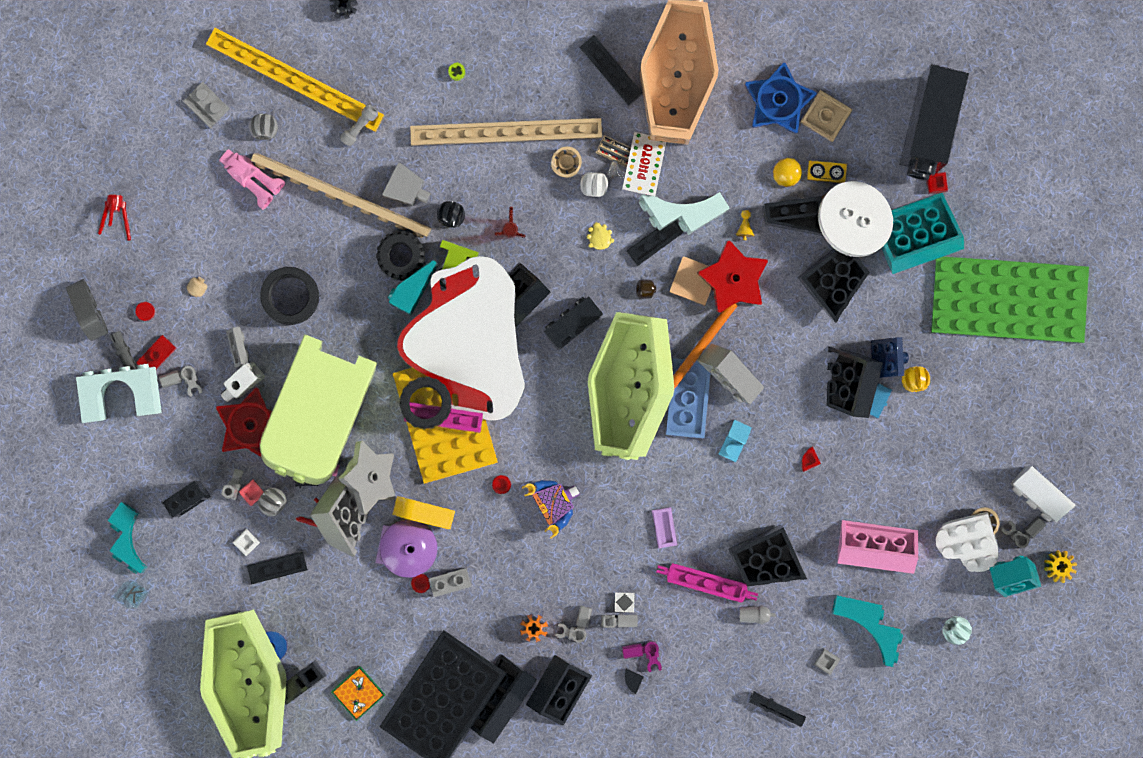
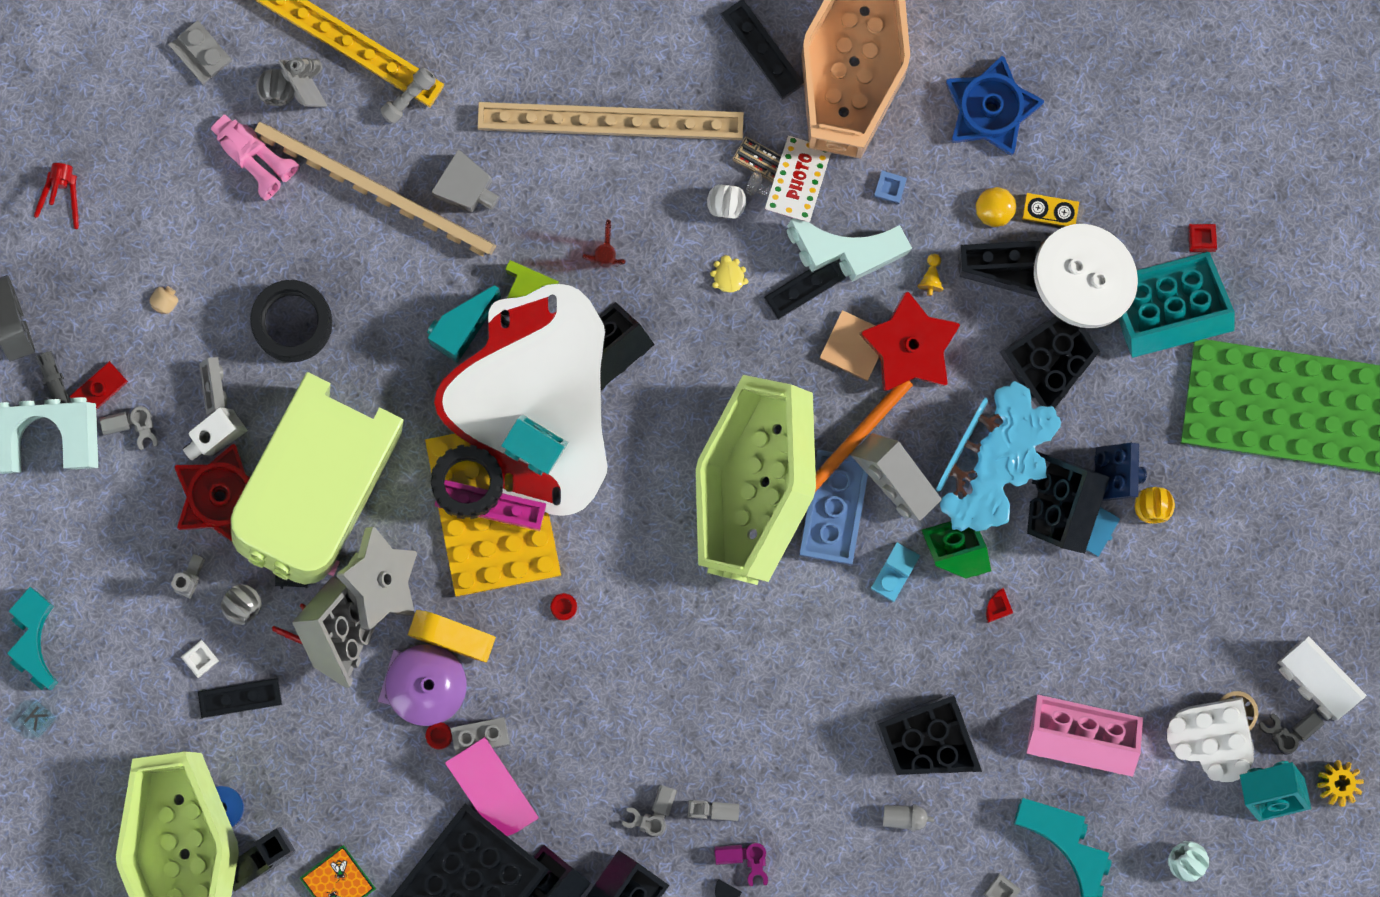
camera: 10 degrees right, 5 degrees down
(145, 311) = (89, 327): red tile -> none
(186, 499) = (121, 589): black window -> none
(251, 492) = (213, 590): coral tile -> none
(279, 116) = (300, 74): none -> light grey hinge
(393, 240) = (449, 255): black tyre -> none
(450, 214) = (524, 227): black piece -> none
(454, 66) = (551, 41): lime bush -> none
(461, 618) = (491, 788): none -> sticker
(471, 374) = (534, 445): none -> teal slope
(529, 624) = (587, 804): orange piece -> none
(553, 503) = (634, 637): torso -> none
(566, 162) = (690, 167): tan helmet -> none
(572, 322) = (681, 389): black wedge -> none
(624, 602) = (722, 785): tile -> none
(645, 289) = (786, 351): dark brown piece -> none
(664, 527) = (787, 685): lavender tile -> none
(707, 582) = (841, 766): dark pink plate -> none
(710, 164) = (890, 187): none -> medium blue tile
(778, 420) = (957, 551): none -> green slope
(806, 354) = (1003, 456): none -> medium azure plant
(826, 116) = (1055, 134): tan tile -> none
(933, 121) = (1203, 149): black brick -> none

